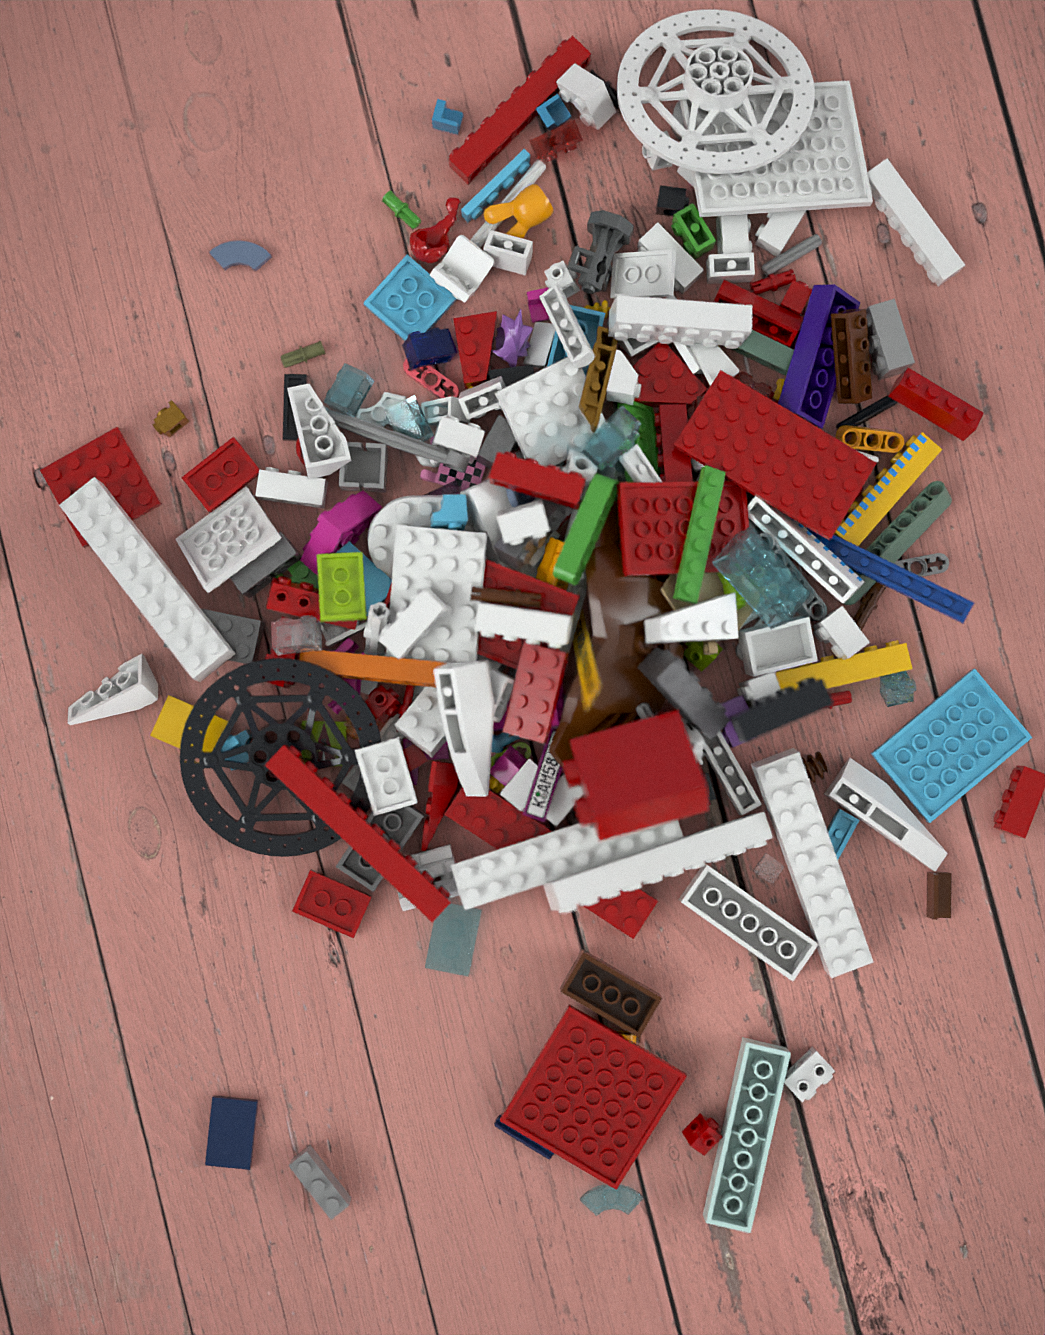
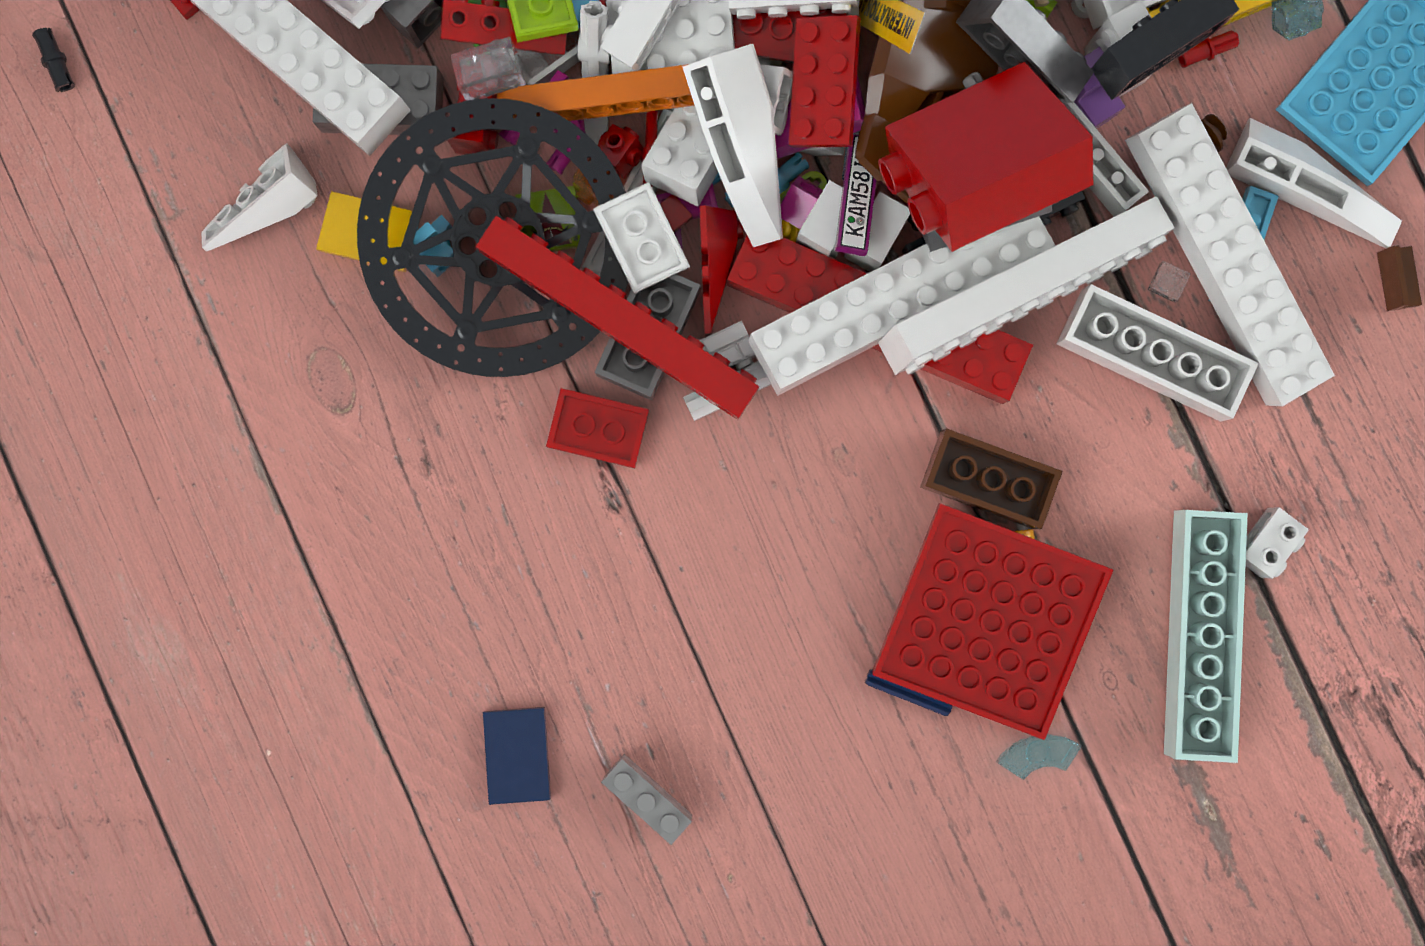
camera: 10 degrees left, 0 degrees up
(453, 940) = (767, 448): clear light blue tile -> none
(702, 1134) = (1147, 644): red brick -> none

